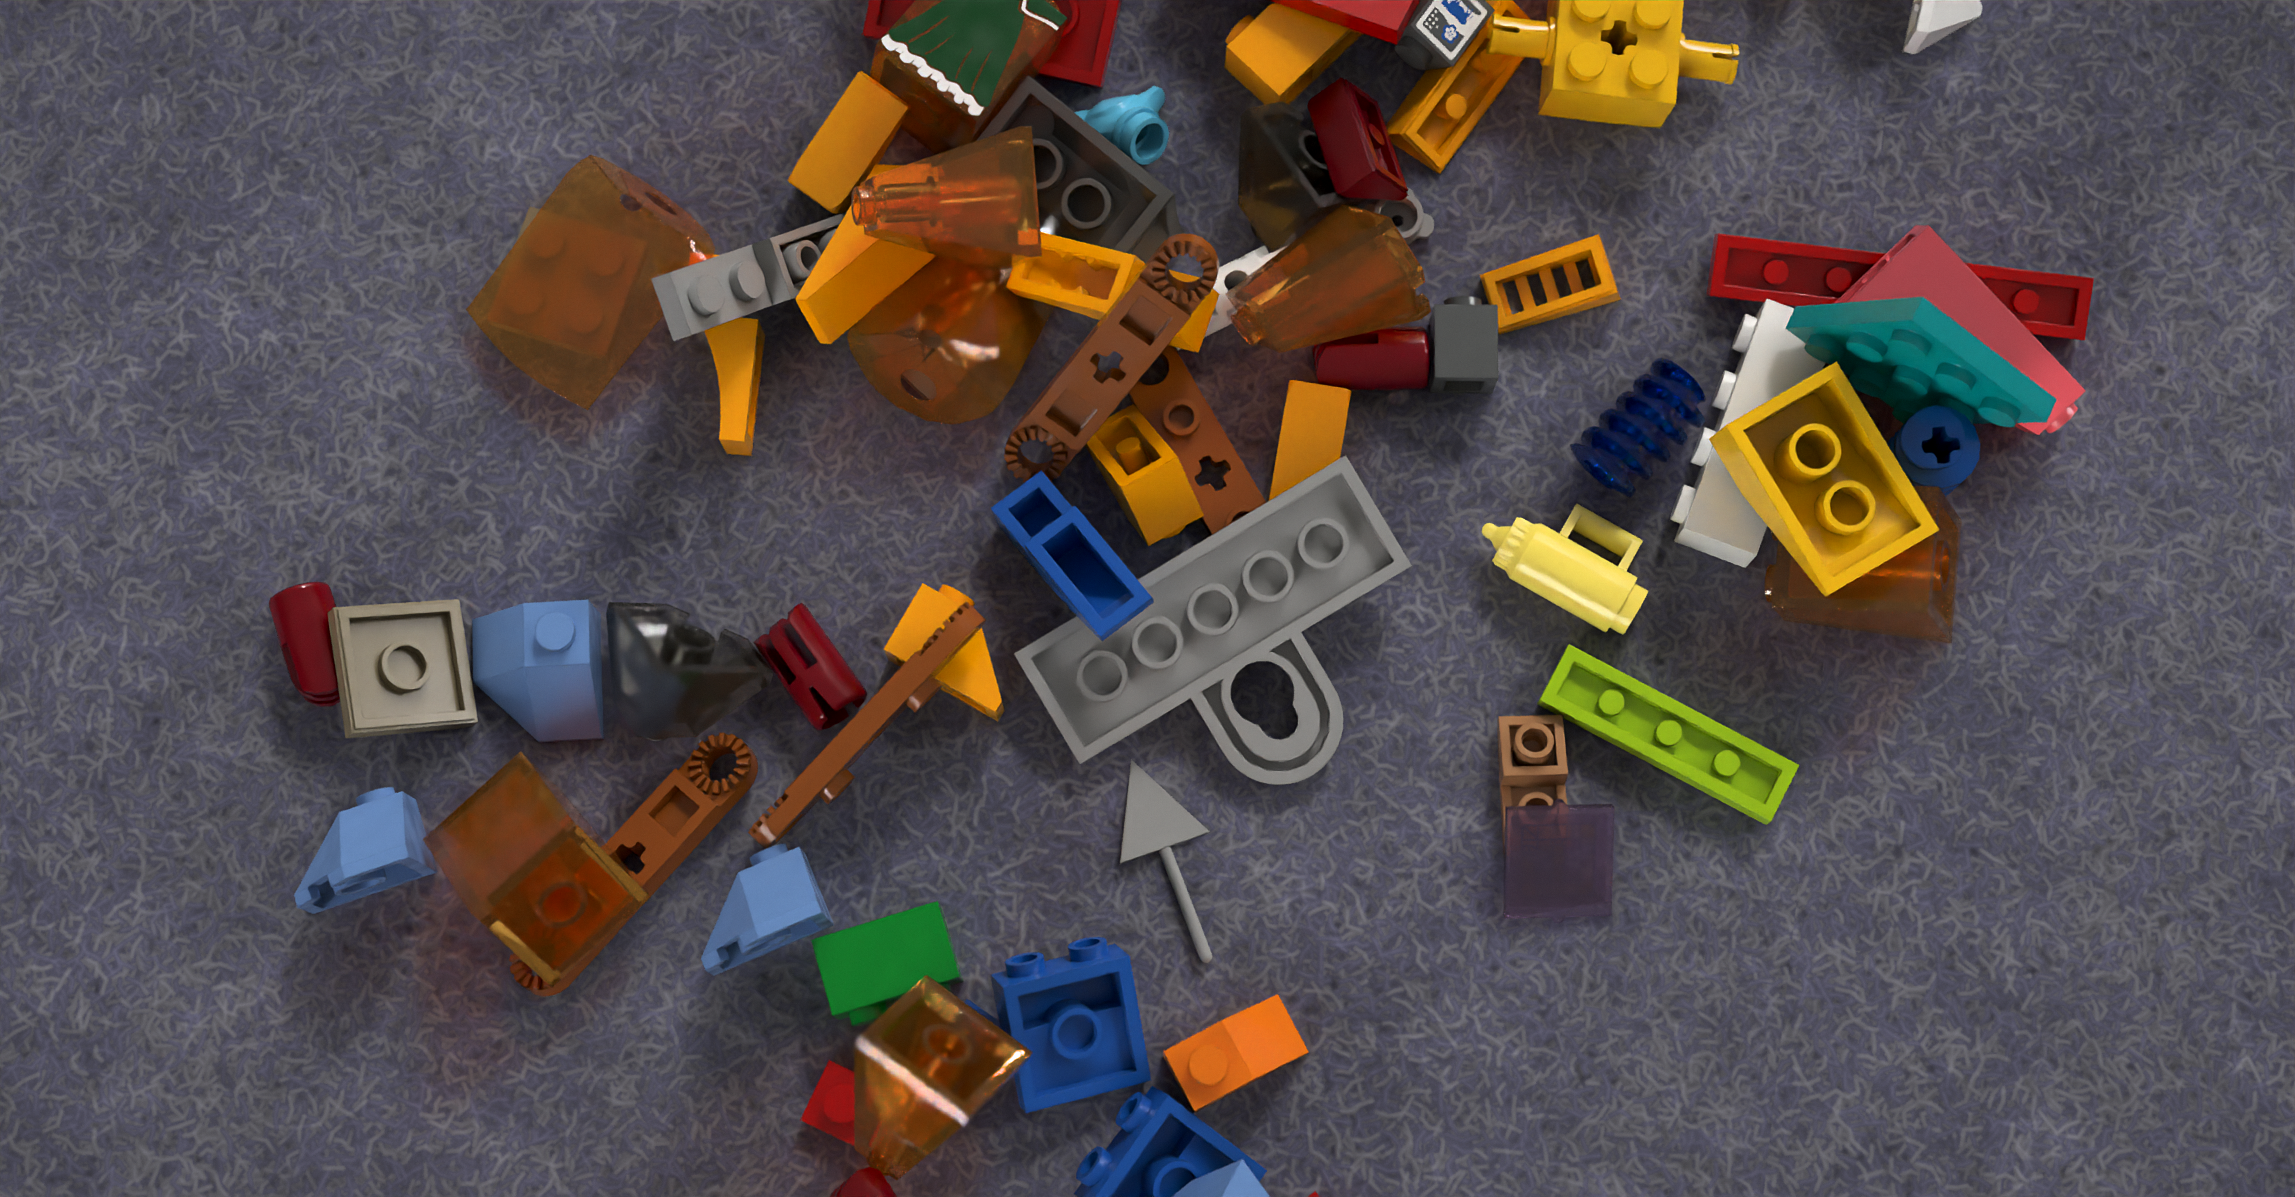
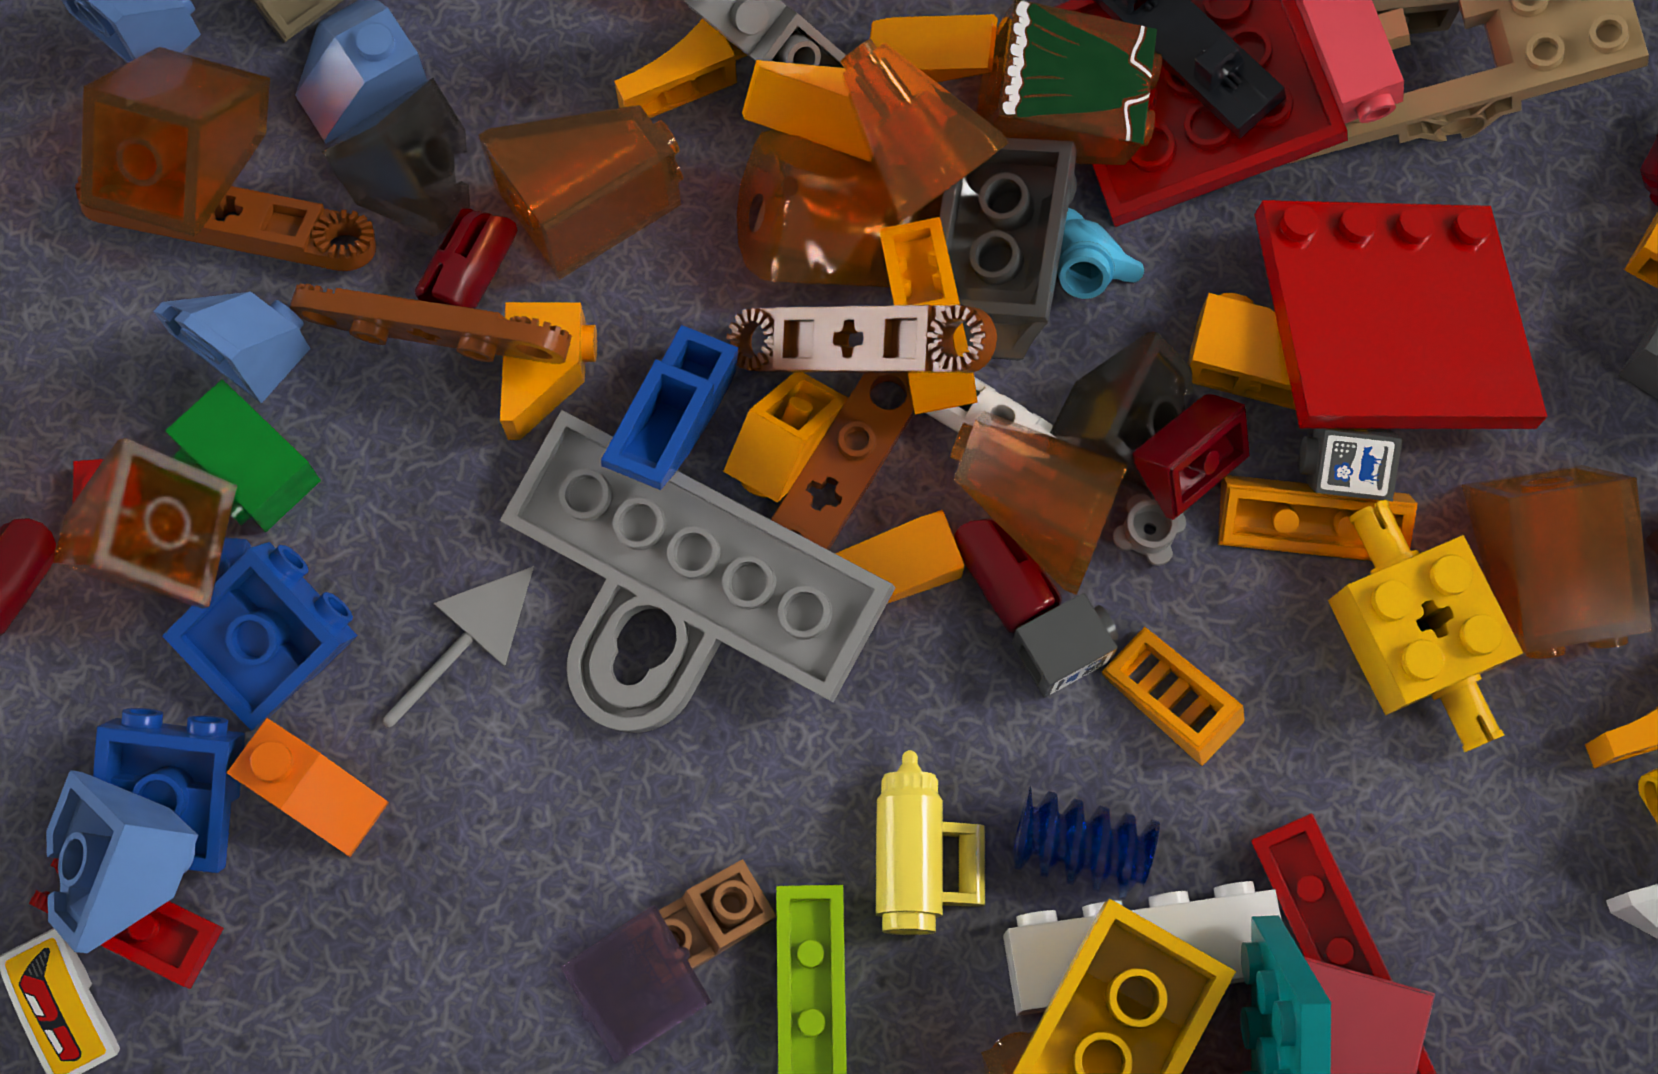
camera: 60 degrees right, 5 degrees down
(804, 520) = (584, 180): none -> clear orange slope

